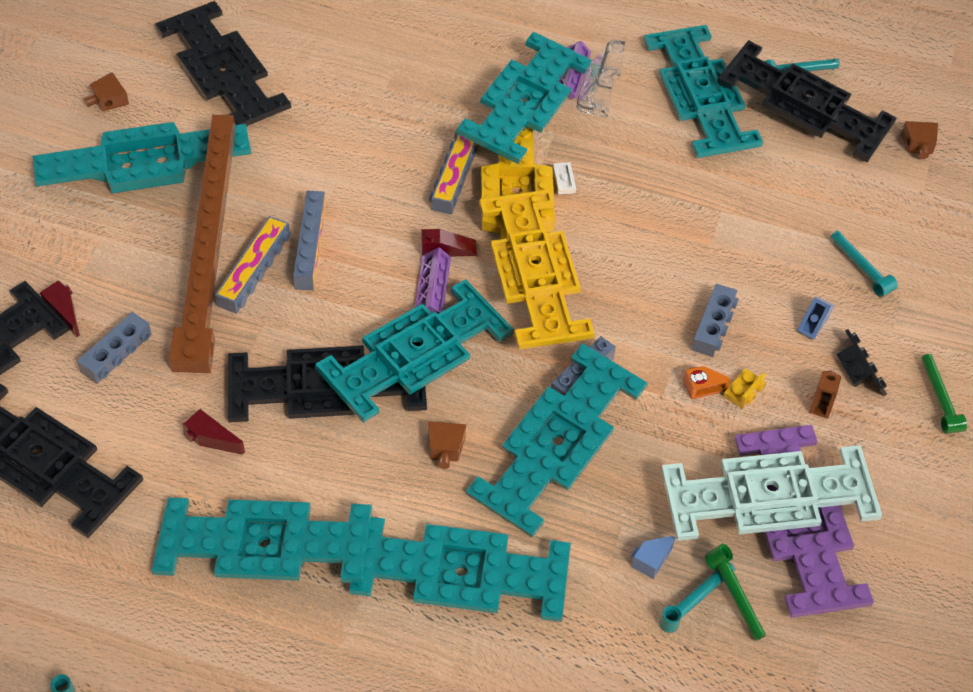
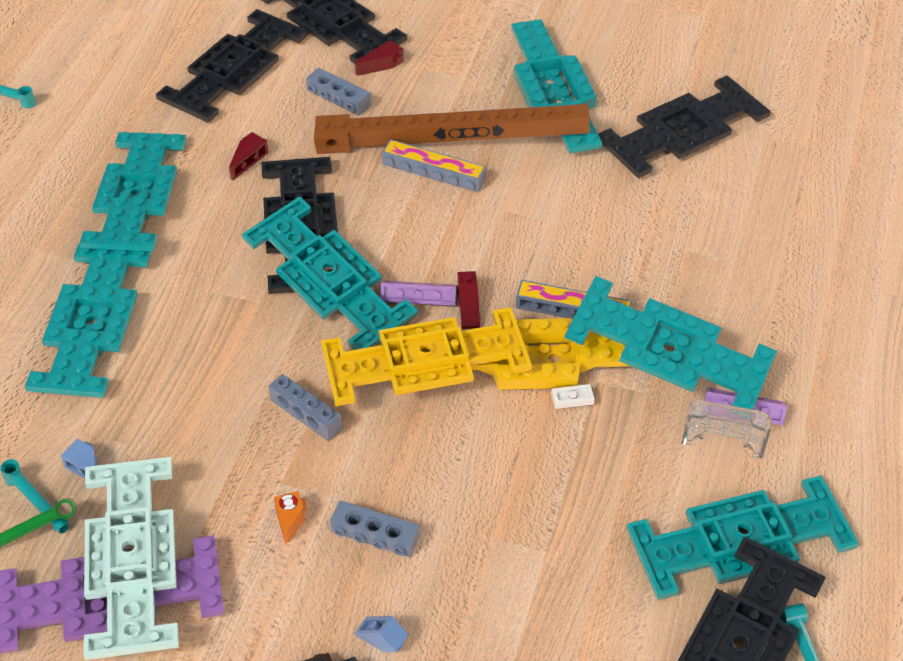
camera: 90 degrees right, 5 degrees down
(107, 93) = (632, 58): dark orange torso -> none
(309, 240) = (464, 199): sand blue brick -> none
(446, 442) = (226, 304): dark orange torso -> none
(575, 421) = (200, 374): teal piece -> none
(744, 388) = (283, 556): yellow bracket -> none
(829, 386) = (267, 628): dark orange torso -> none

